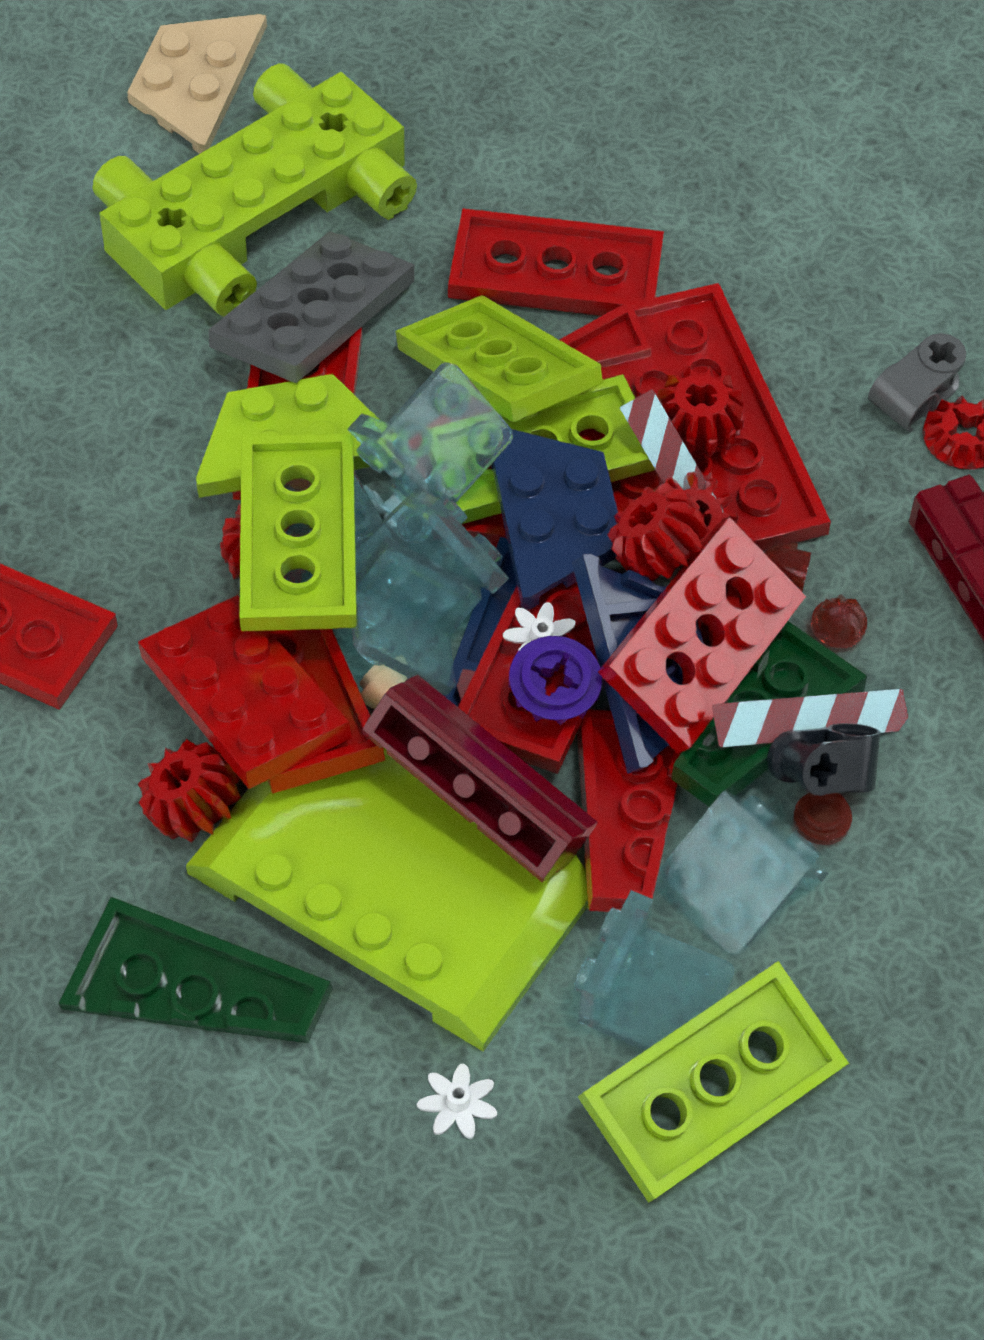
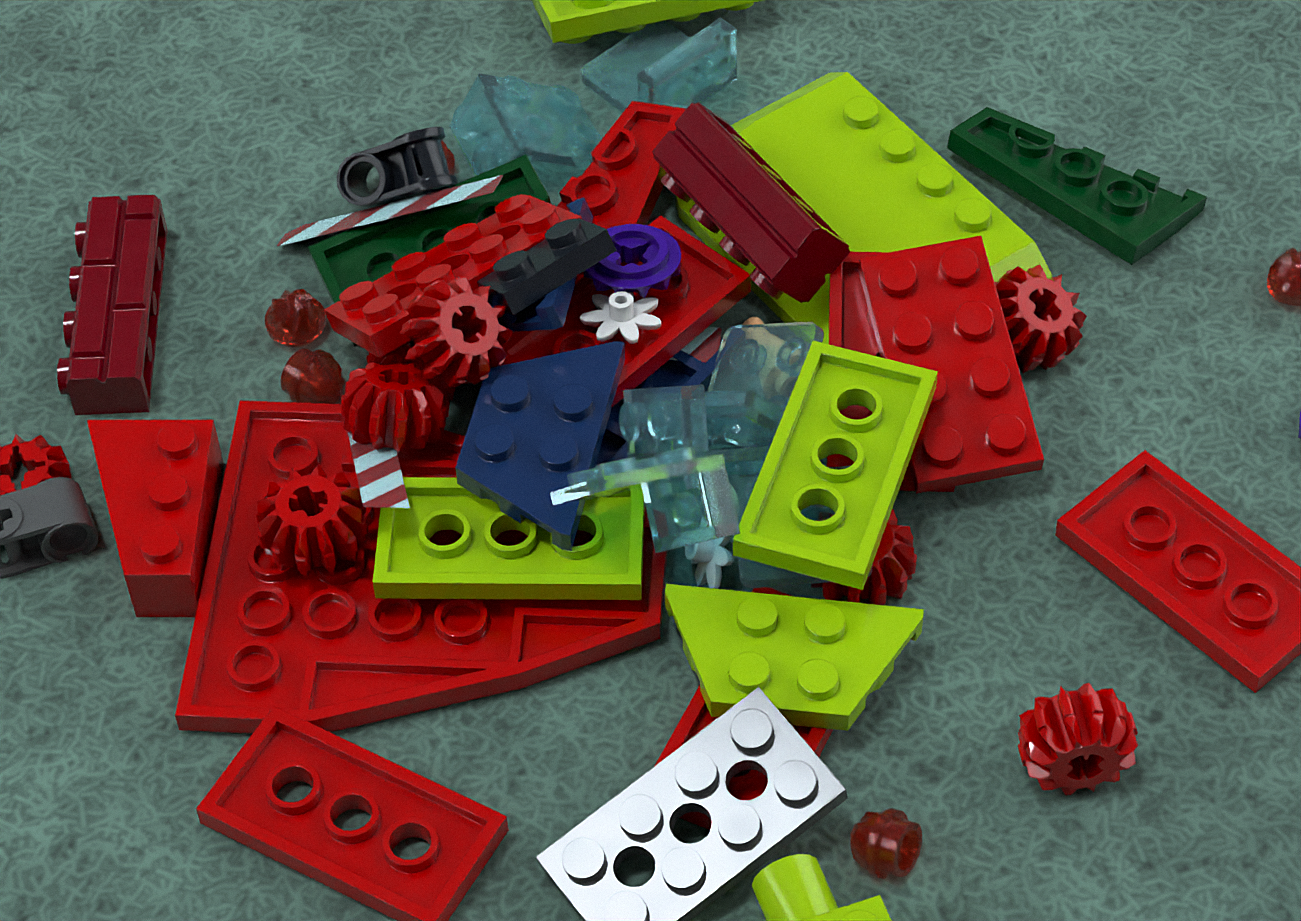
camera: 155 degrees left, 5 degrees down
(53, 432) = (1077, 739): none -> red gear
(178, 349) = (886, 843): none -> clear red plate
(458, 1109) = (868, 53): white plant -> none
(502, 355) = (547, 679): lime plate -> none
(613, 609) = (531, 274): none -> black plate
(836, 417) = (162, 506): none -> red wedge

